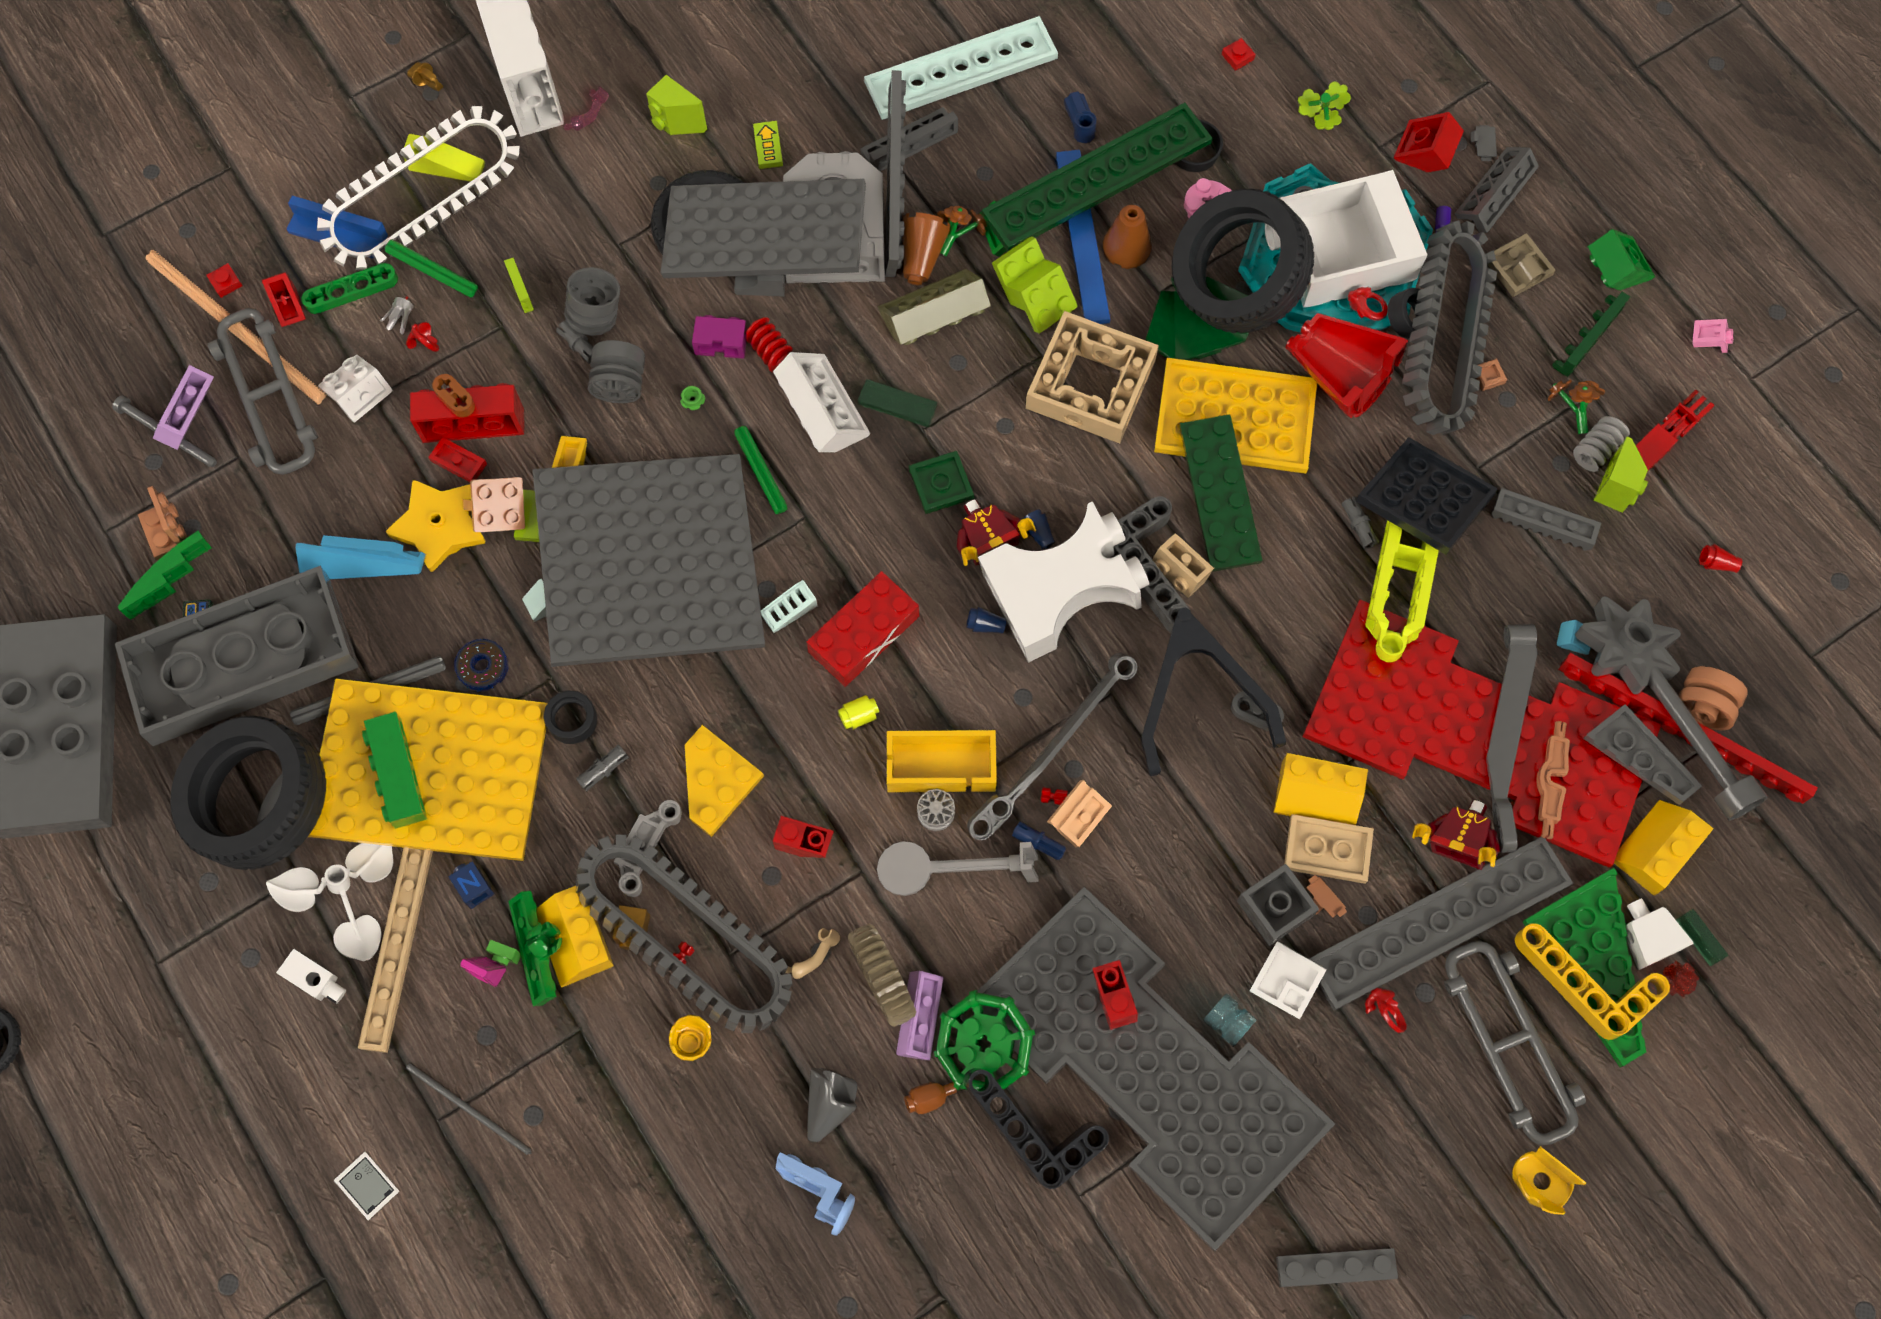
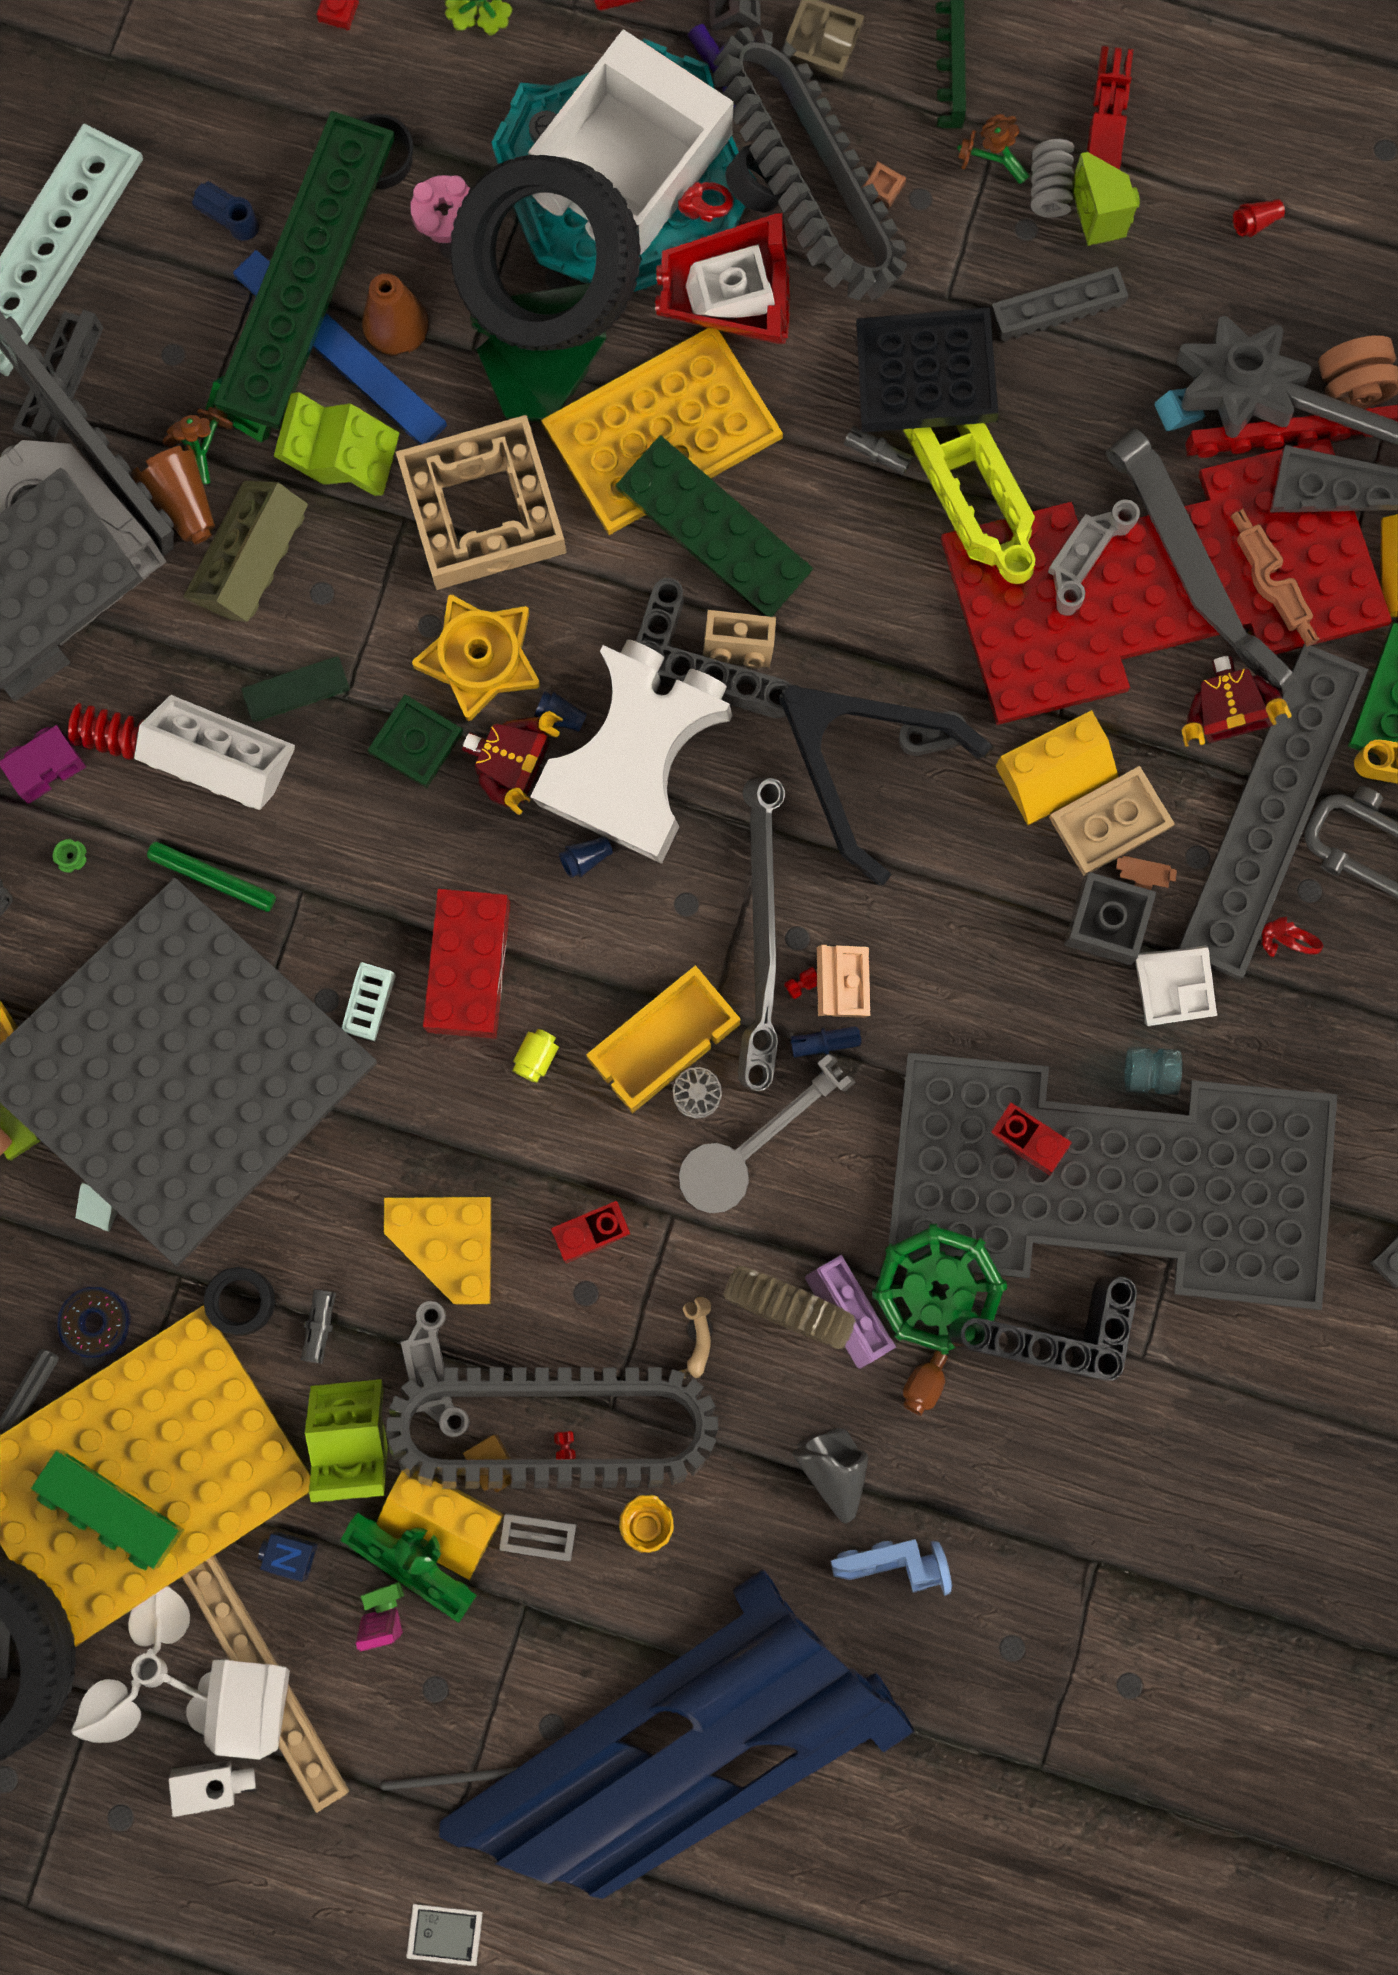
camera: 40 degrees left, 10 degrees up
(371, 949) = (245, 1708): none -> white slope
(525, 1197) = (612, 1812): none -> dark blue panel
(559, 843) = (346, 1440): none -> lime bracket
(637, 1012) = (568, 1541): none -> light grey tile
(1007, 450) = (473, 632): none -> yellow plate
(1343, 360) = (730, 285): none -> white slope
(1443, 671) = (1084, 549): none -> light grey plate

